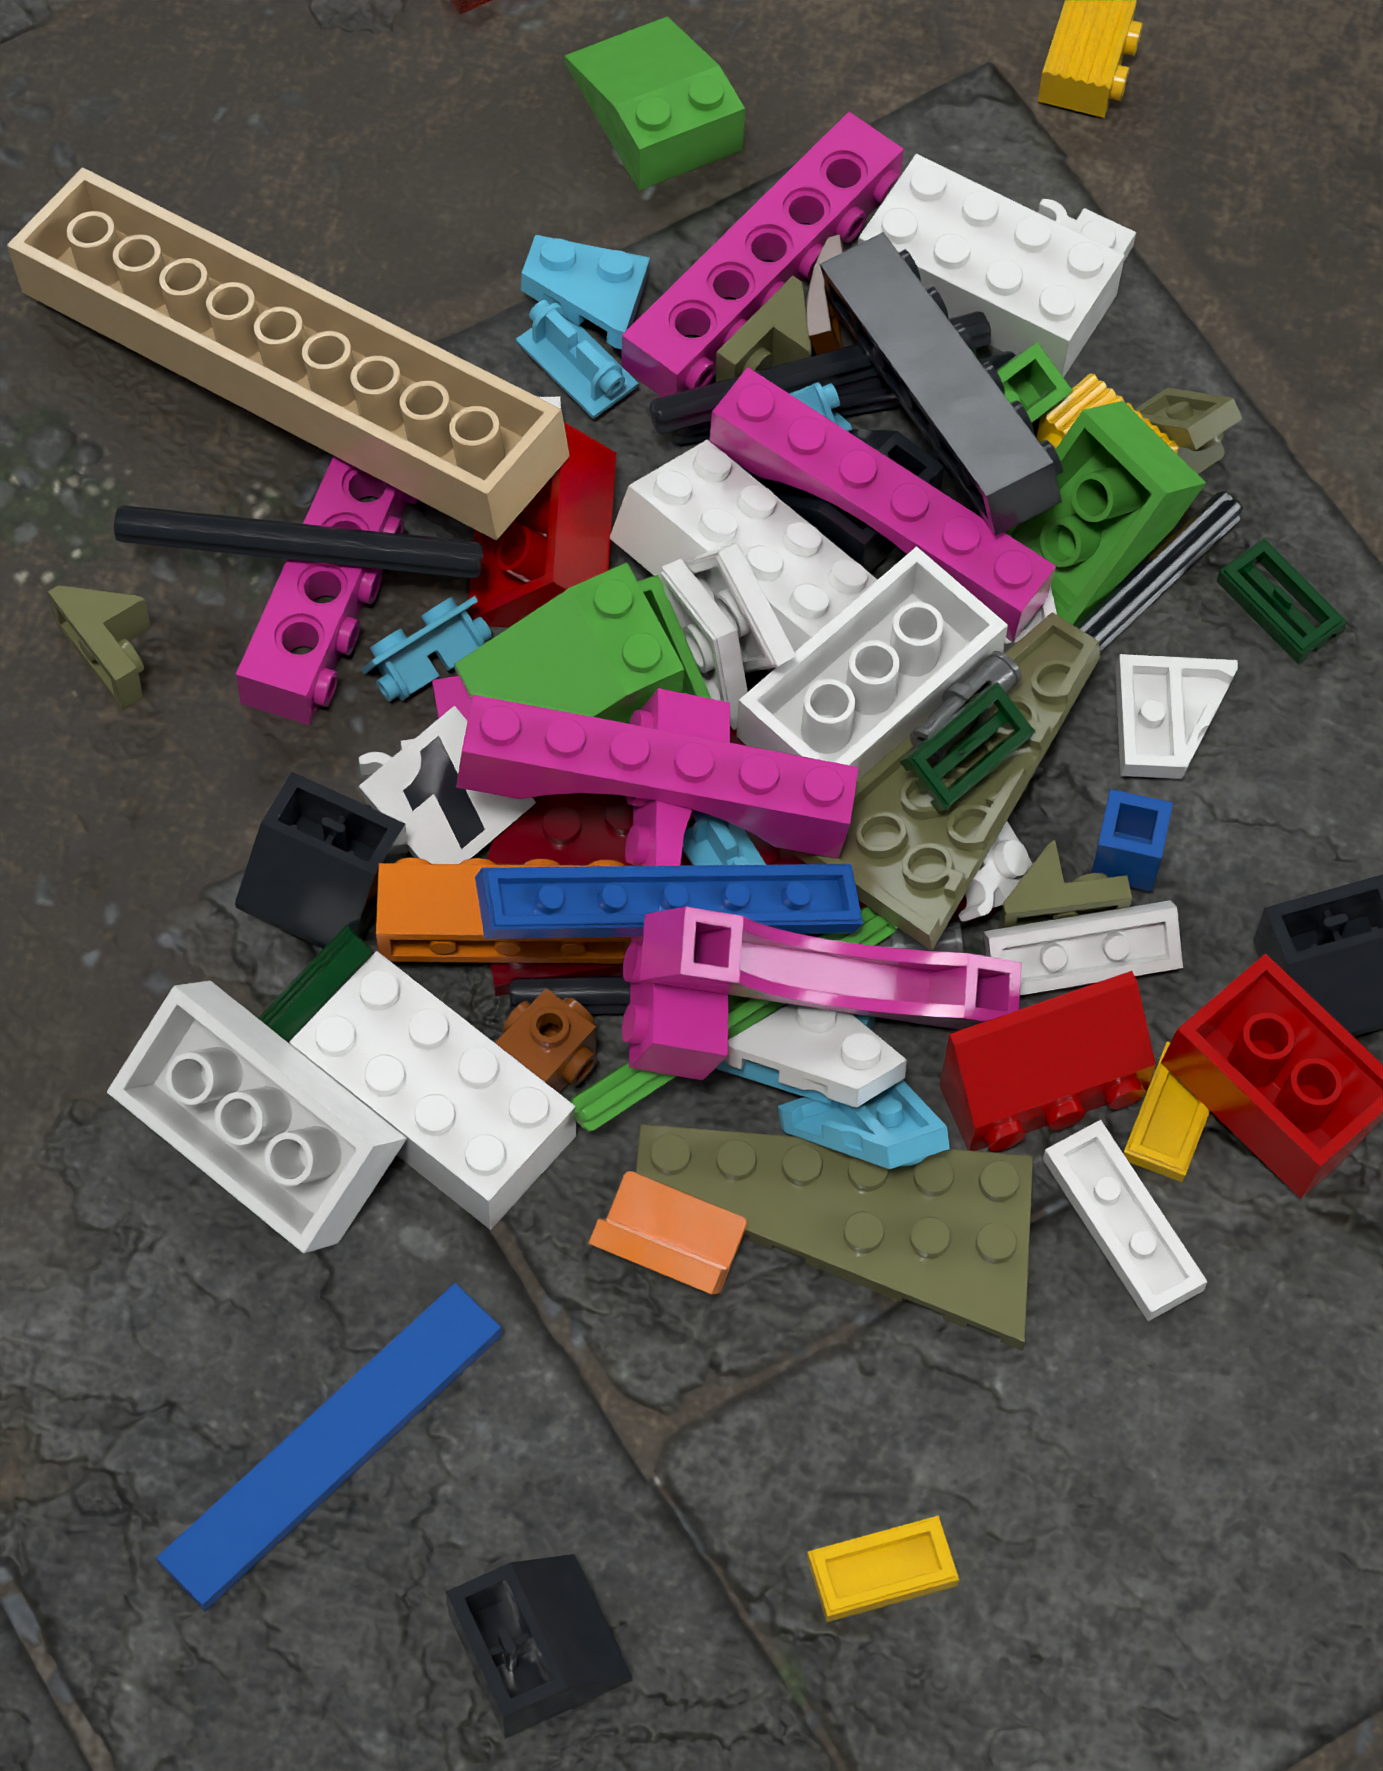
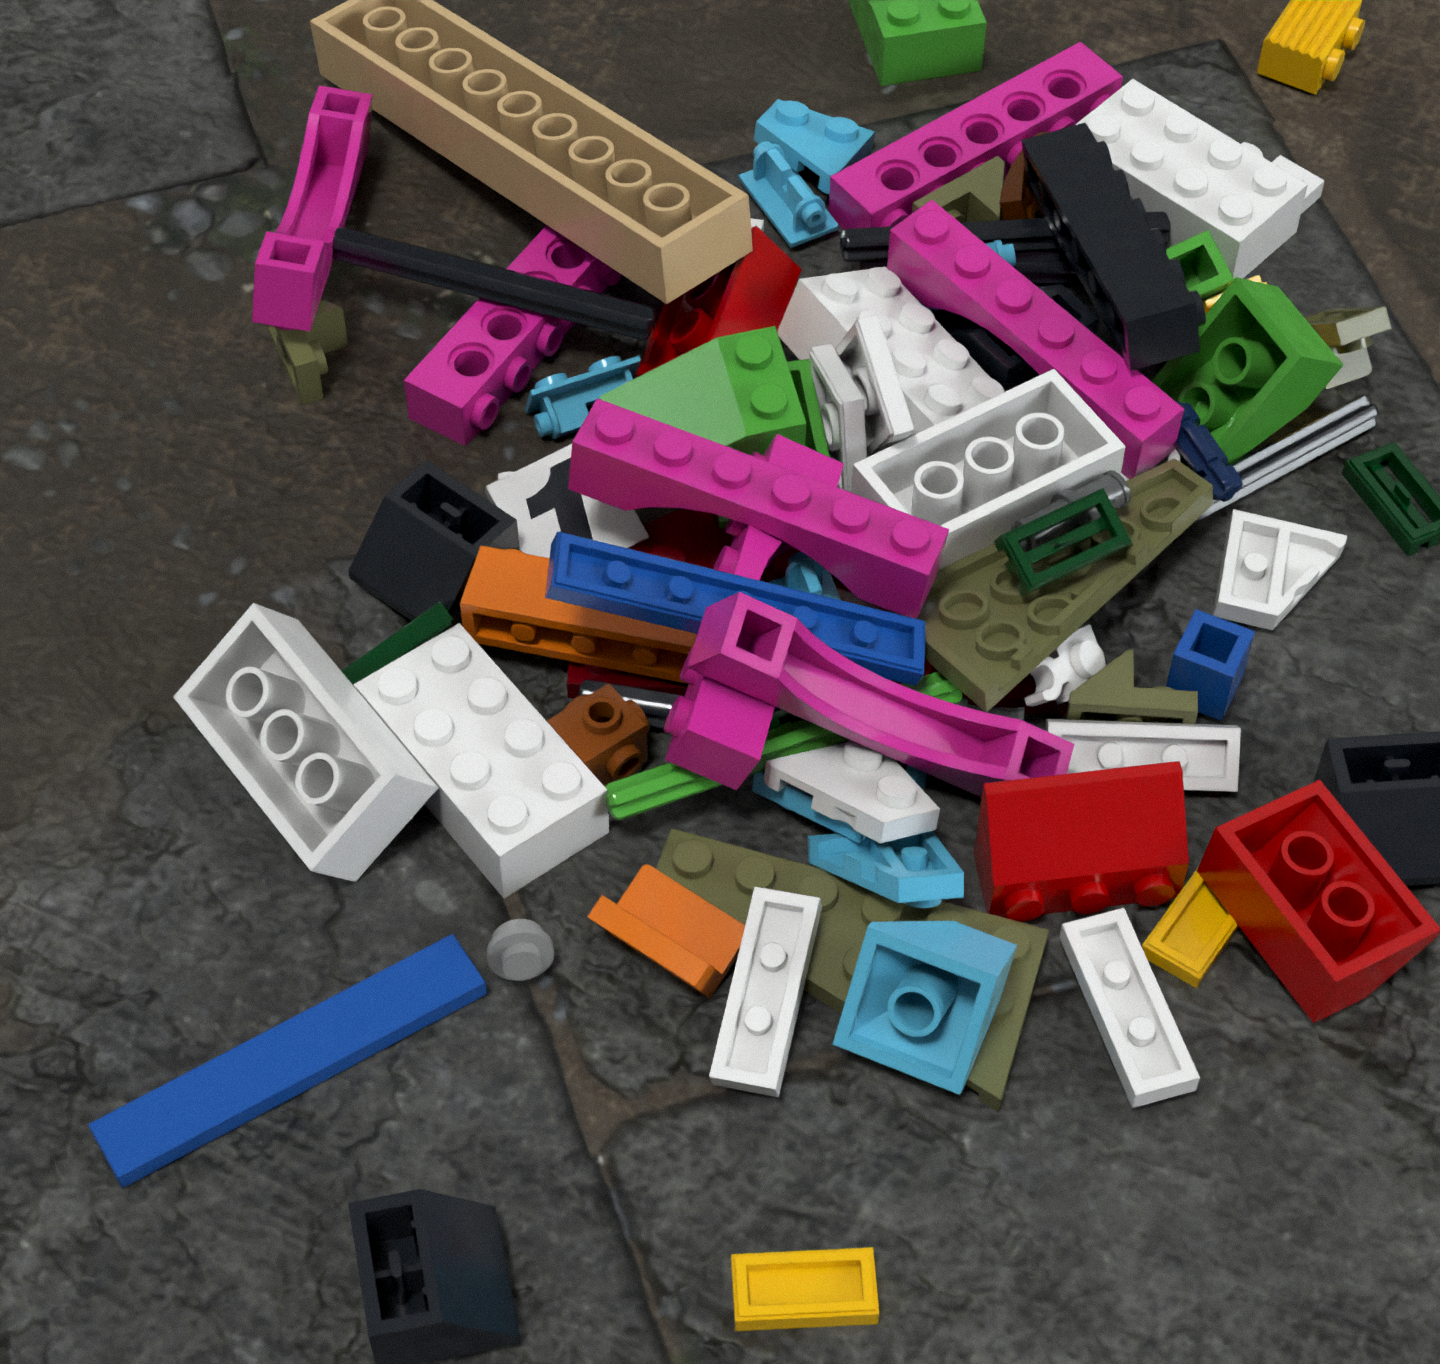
camera: 15 degrees right, 10 degrees down
(82, 486) = (299, 254): none -> dark pink arch
(526, 1287) = (520, 950): none -> light grey plate
(778, 1281) = (766, 992): none -> white plate
(937, 1261) = (924, 998): none -> medium azure slope
(1081, 600) = (1206, 456): none -> dark blue axle

